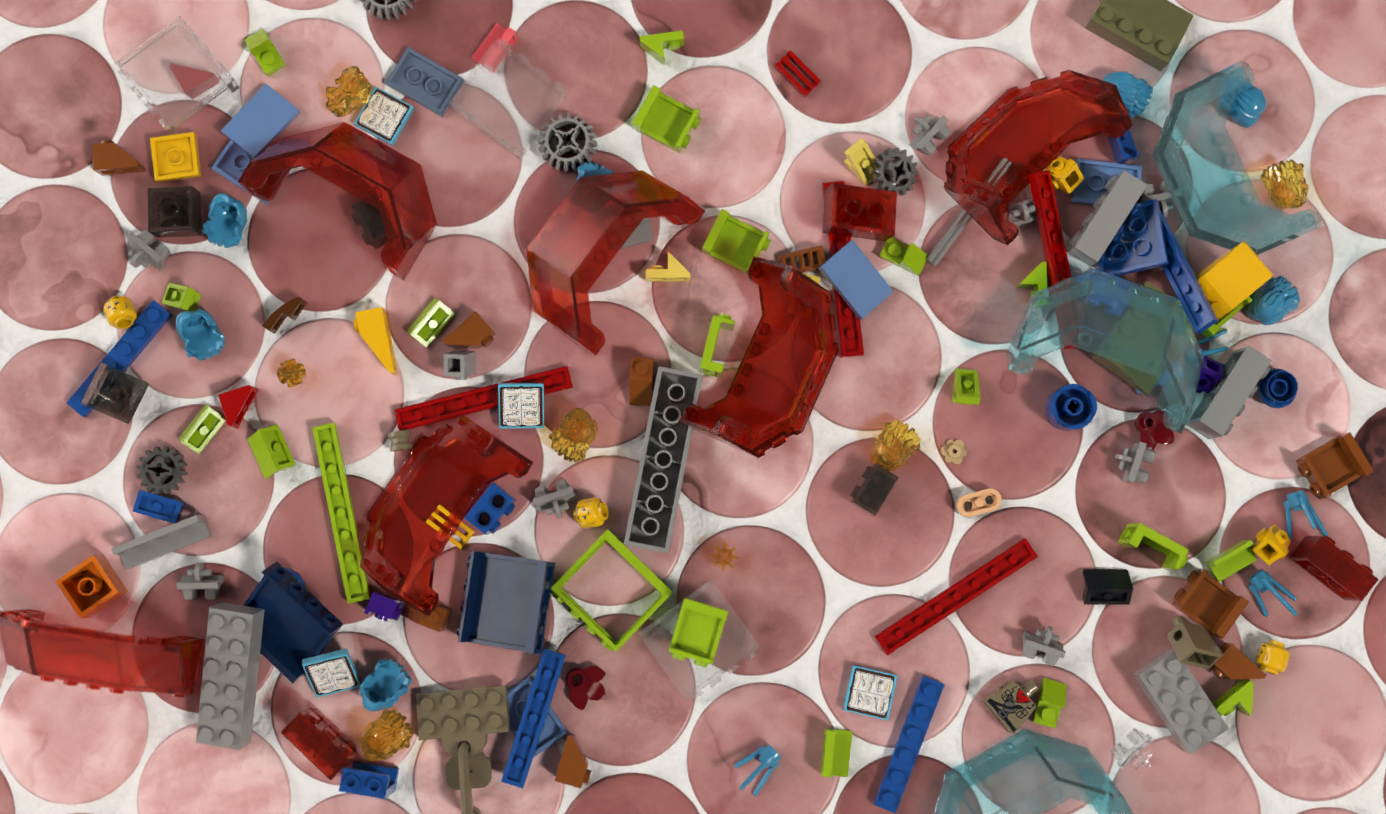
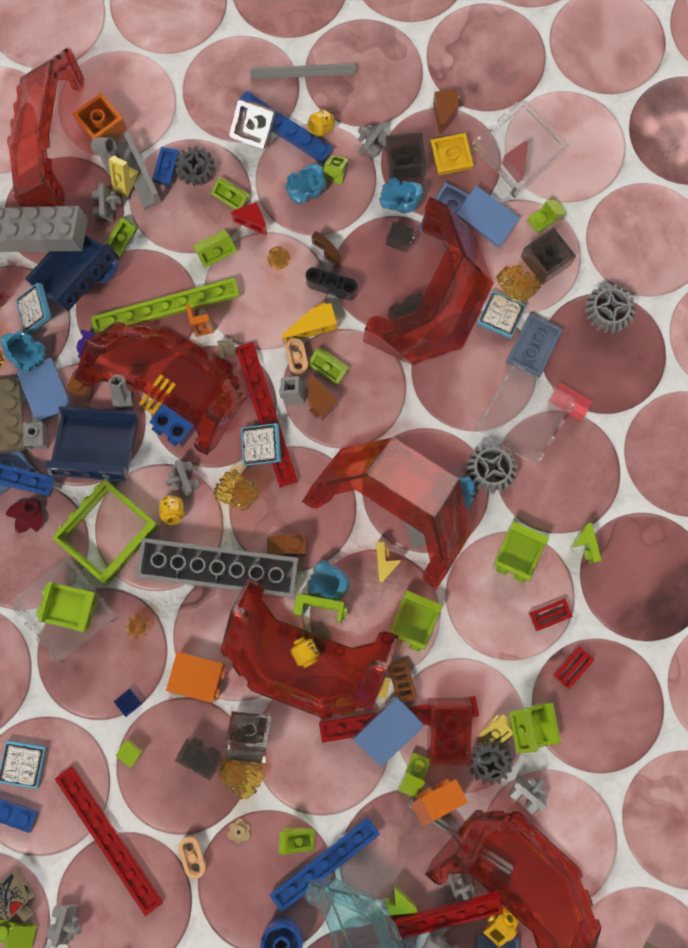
camera: 85 degrees right, 5 degrees down
(45, 331) = (303, 71): none -> light grey axle
(133, 576) = (105, 148): none -> light grey piece
(169, 560) = (122, 176): none -> light yellow slope
(244, 567) = (121, 236): none -> lime slope
(277, 226) = (400, 237): none -> clear smoke brick
(317, 54) = (548, 256): none -> clear smoke brick
(329, 300) = (326, 276): none -> black beam
(370, 470) = (200, 324): none -> orange panel
(417, 357) = (297, 357): none -> light nougat plate
(435, 662) = (44, 390): none -> medium blue tile
(446, 566) = (121, 395): none -> light grey piece
(489, 672) = (35, 435): none -> light grey brick
(686, 335) = (328, 581): none -> dark azure hair
(743, 111) = (535, 620): none -> red tile
(764, 366) = (305, 652): none -> yellow head
(785, 490) = (196, 677): none -> orange panel
(808, 570) = (128, 702): none -> clear blue tile
(854, 432) = (248, 737): none -> clear smoke brick
(860, 120) = (534, 727): none -> lime panel
(864, 570) = (129, 753): none -> lime slope
(933, 229) = (439, 802): none -> orange brick
(992, 358) = (325, 863): none -> blue plate

